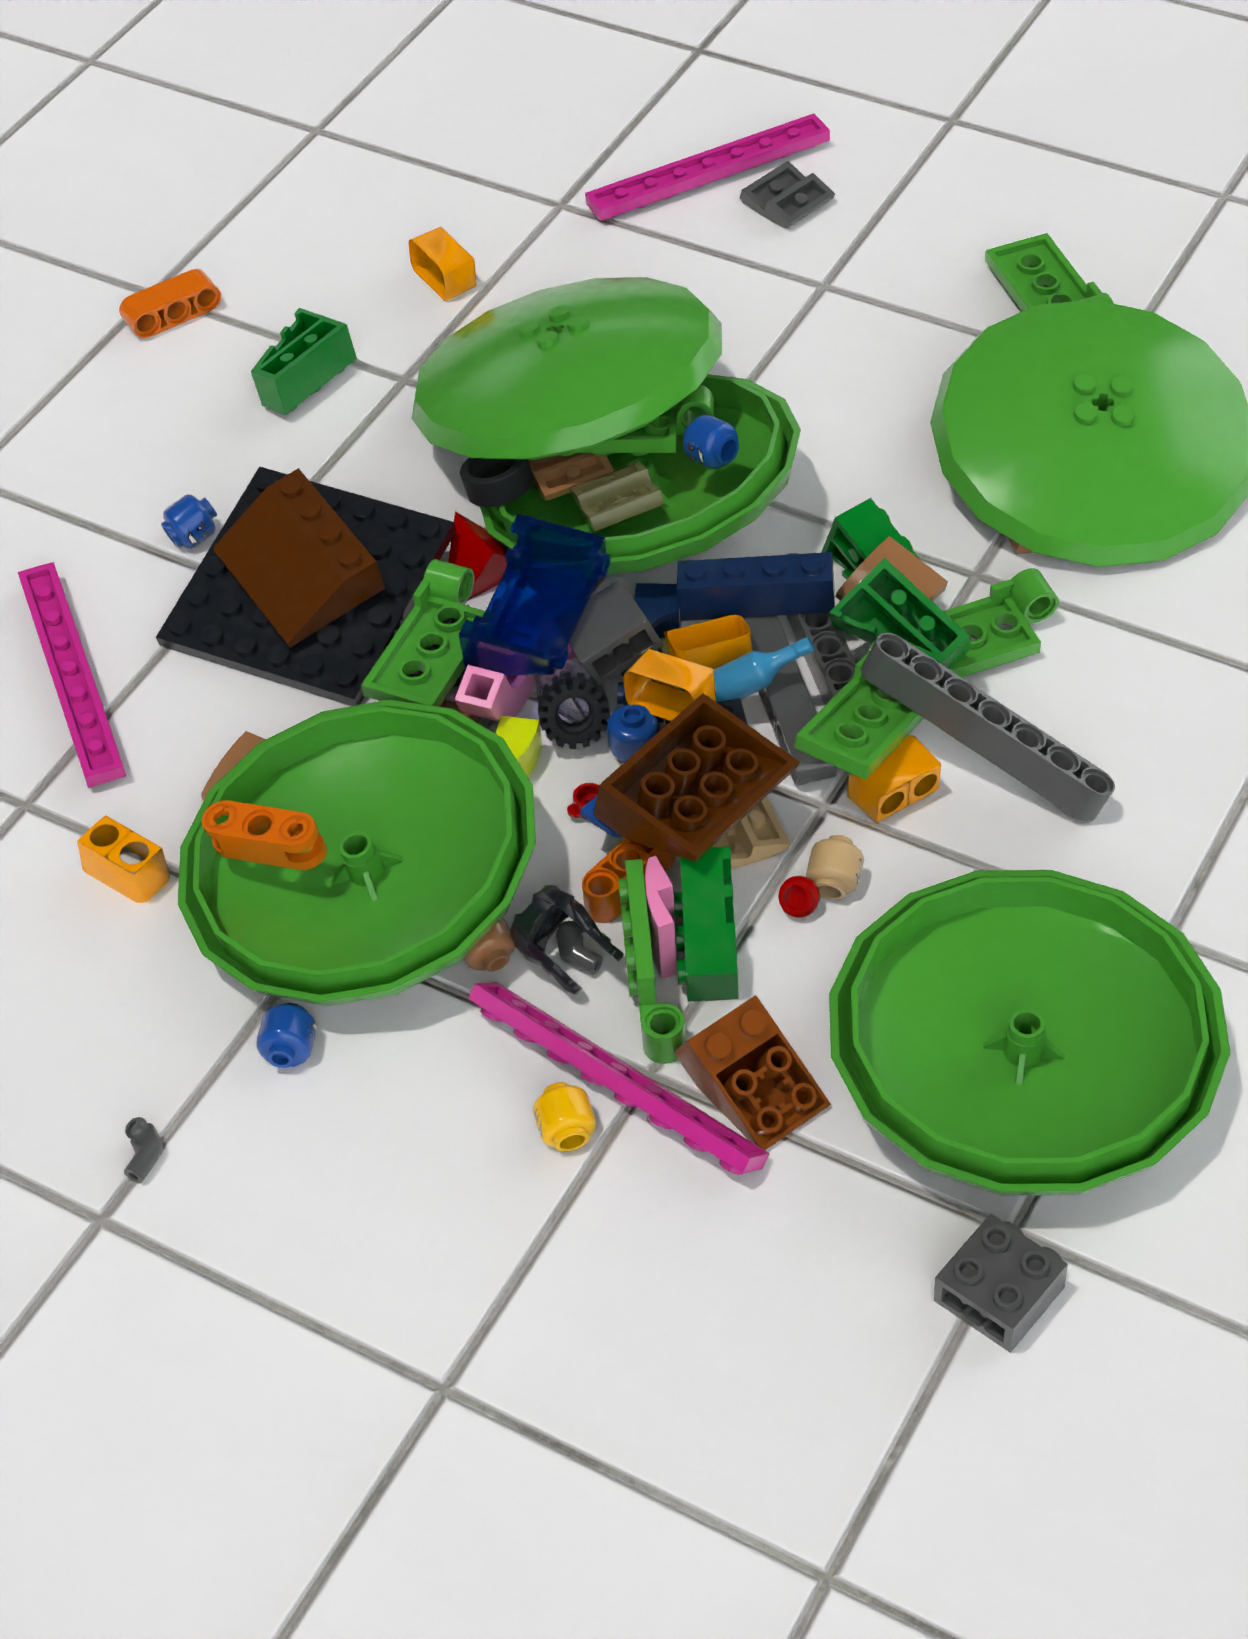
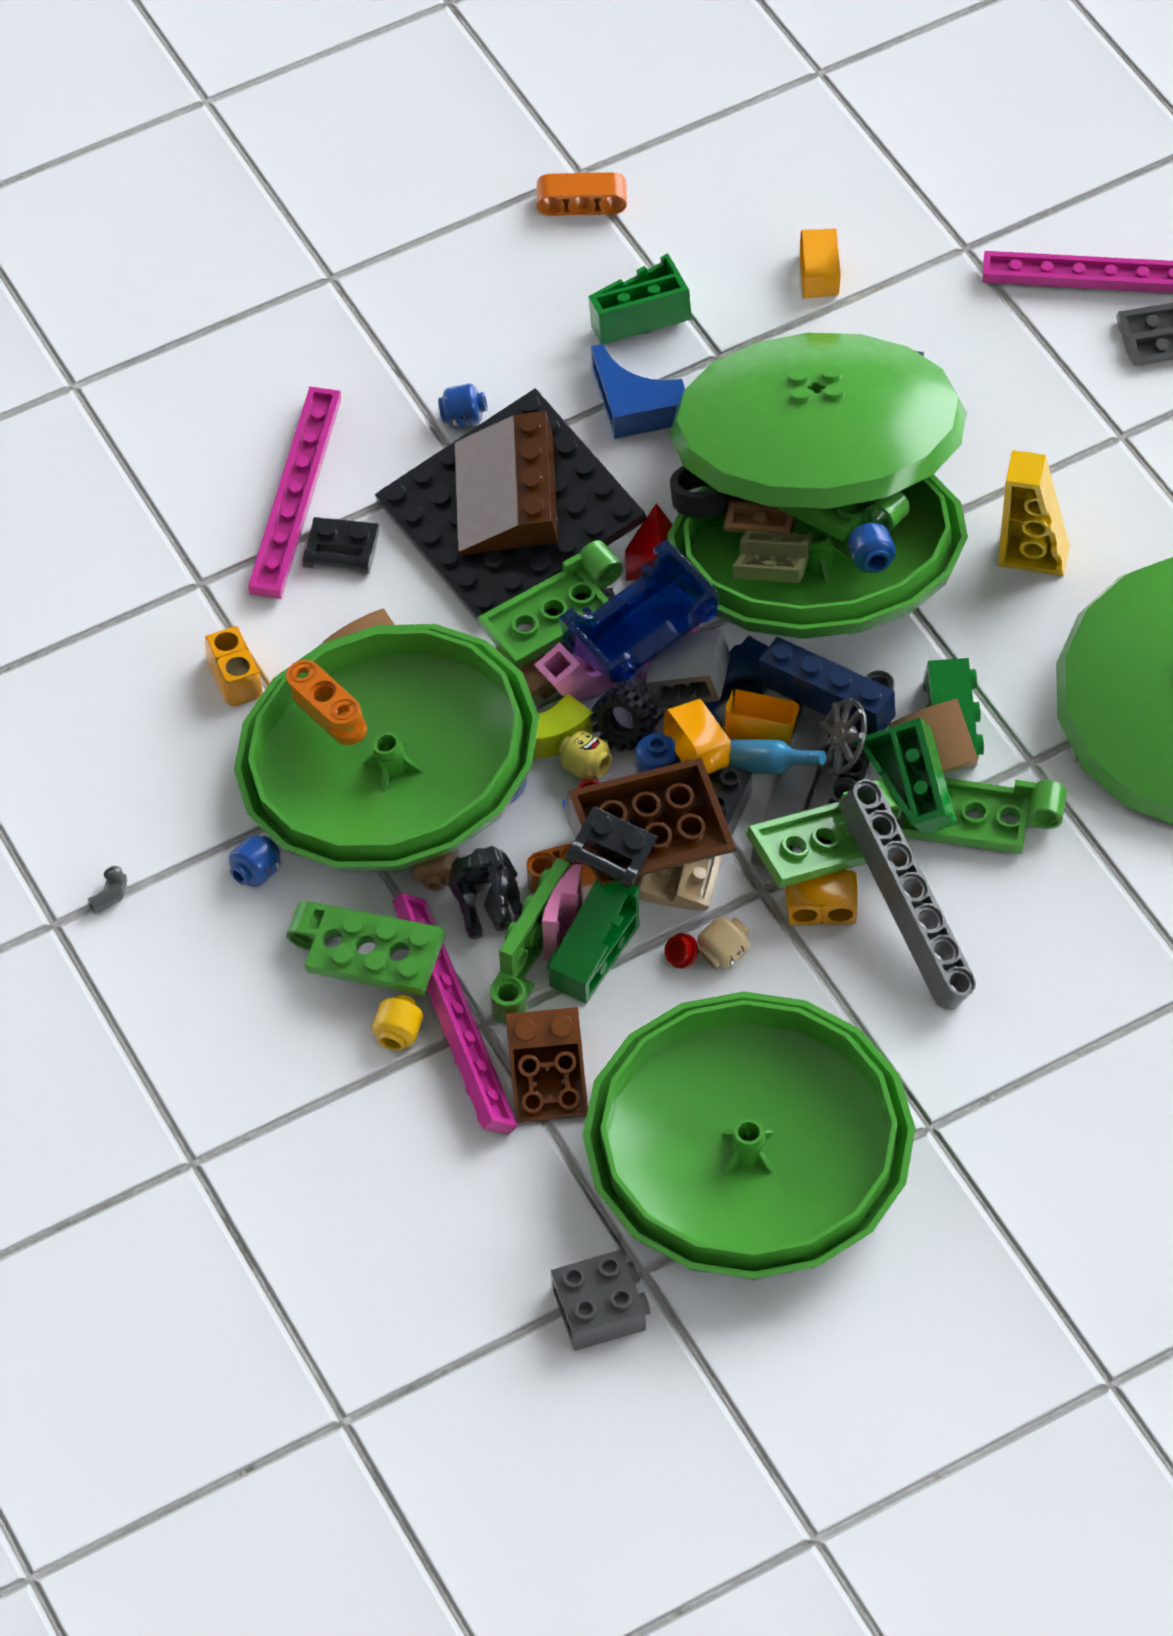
camera: 30 degrees right, 5 degrees up
(153, 697) = (341, 538): none -> black plate
(356, 445) = (632, 401): none -> blue arch
(404, 1061) = (318, 922): none -> bright green hinge
(558, 765) = (585, 755): none -> light yellow head
(684, 807) = (616, 840): none -> black plate
(811, 616) = (842, 735): none -> dark grey wheel
(820, 365) = (1032, 521): none -> yellow wedge

